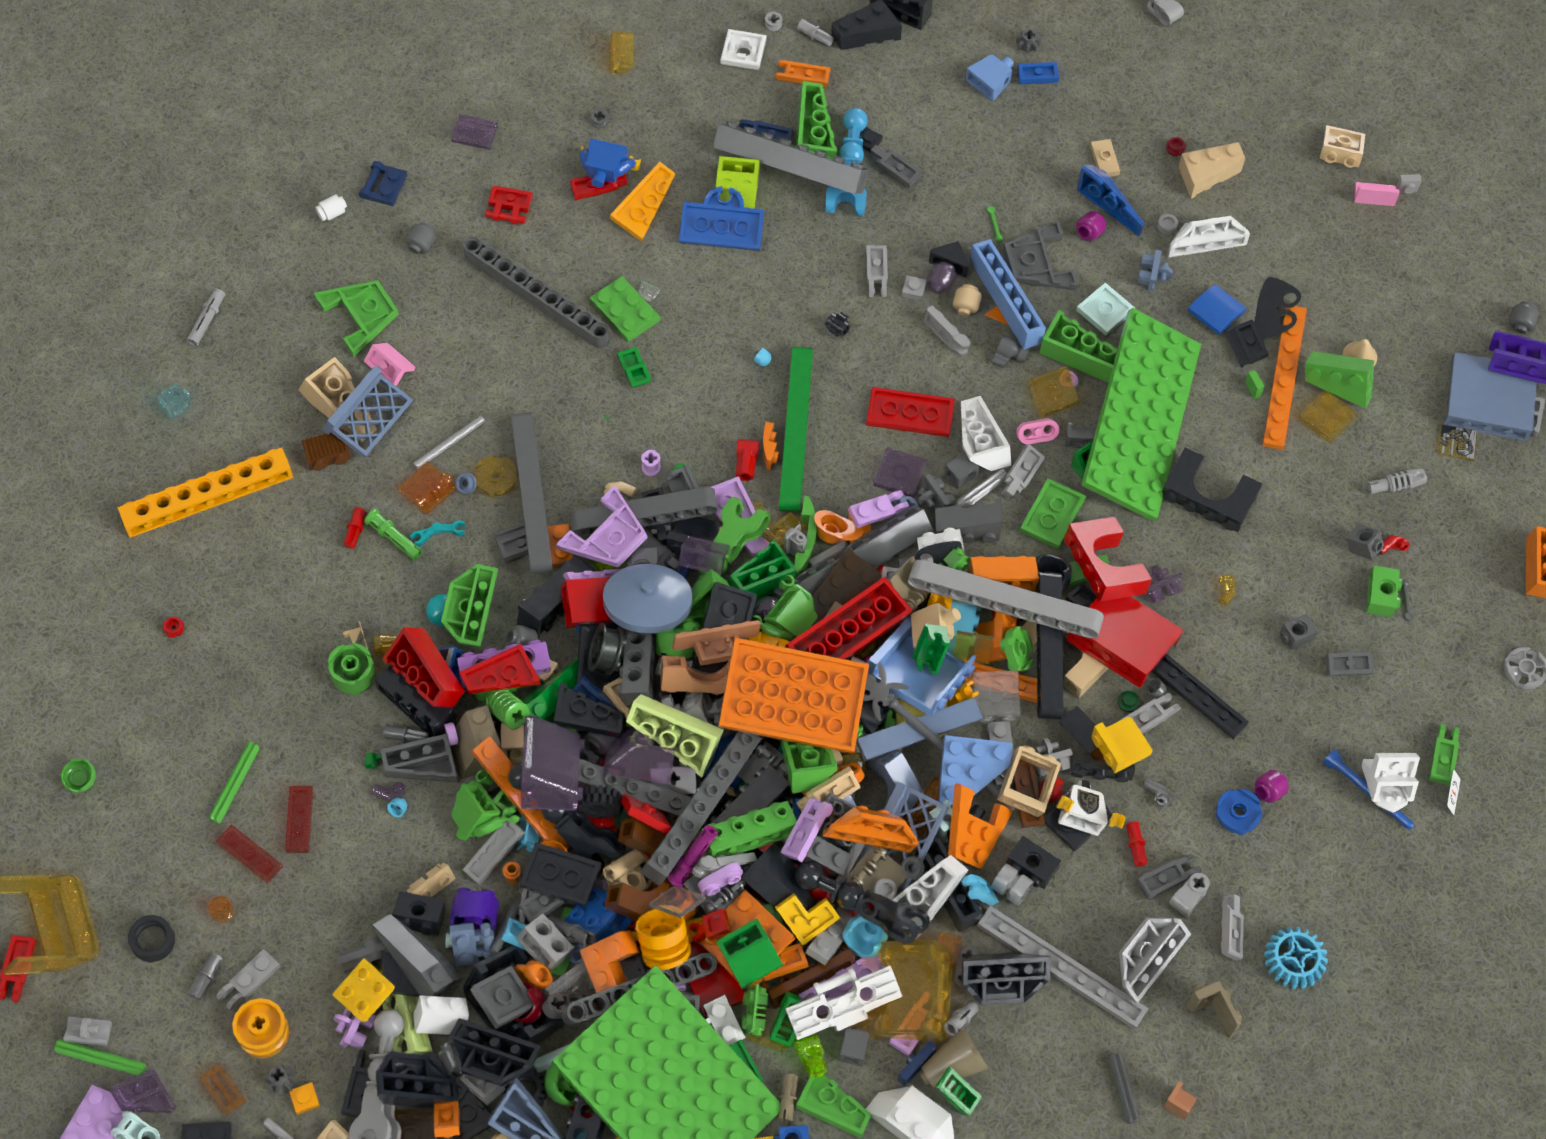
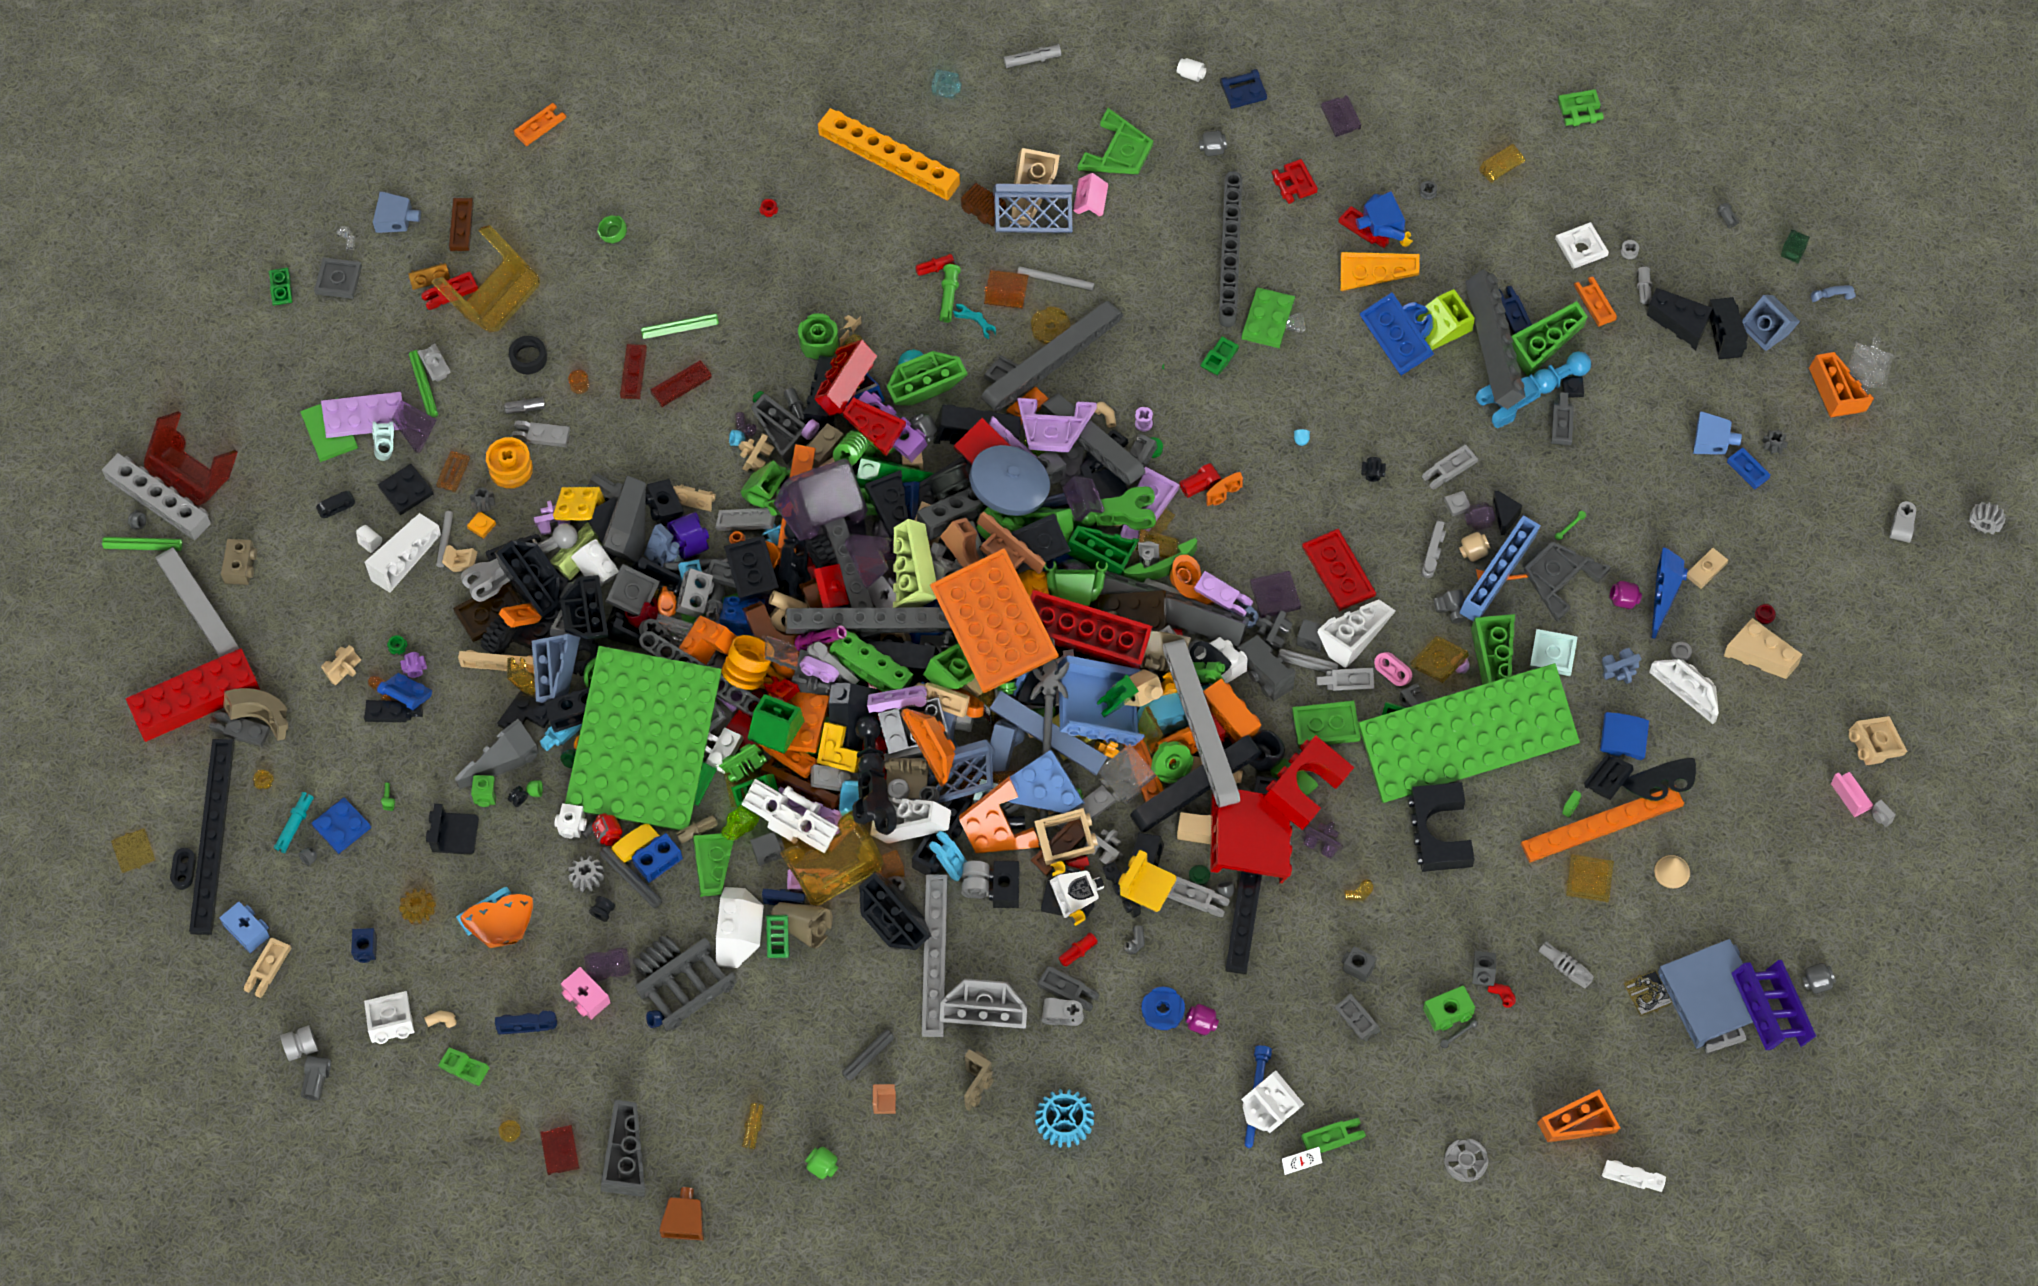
camera: 60 degrees right, 0 degrees up
(425, 799) = (762, 447): none -> tan hips
(461, 483) = (1028, 310): sand blue plate -> none
(796, 429) = (1256, 497): green beam -> none
(955, 1023) = (838, 905): light grey pin -> none
(1232, 928) = (1055, 1058): light grey hinge -> none
(1341, 375) = (1631, 864): bright green wedge -> none

